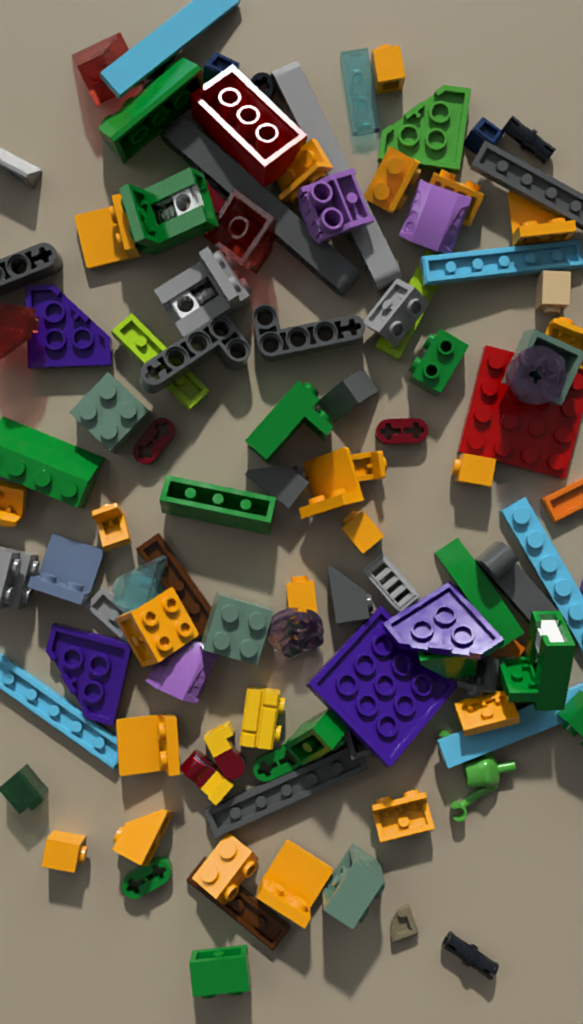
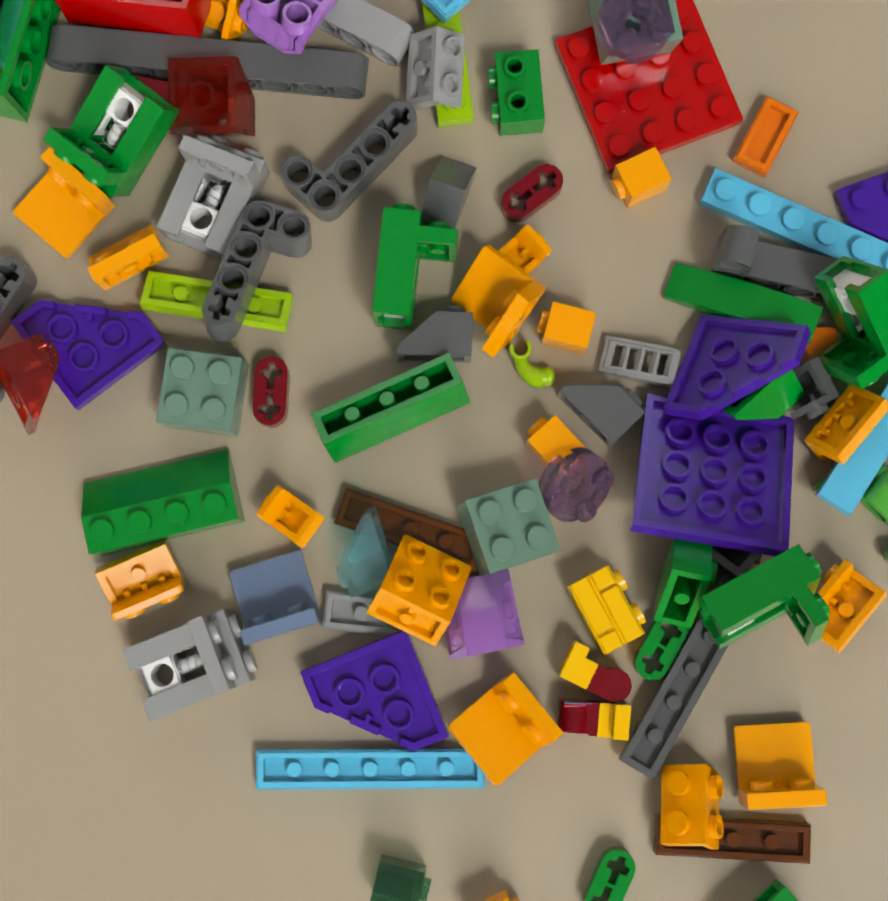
camera: 30 degrees left, 5 degrees down
(124, 295) = (127, 258): none -> light orange bracket
(142, 836) = (570, 837): light orange slope -> none
(320, 545) = (531, 374): none -> lime arm
(353, 887) = (845, 720): sand green brick -> none
(359, 781) = (766, 593): none -> green brick

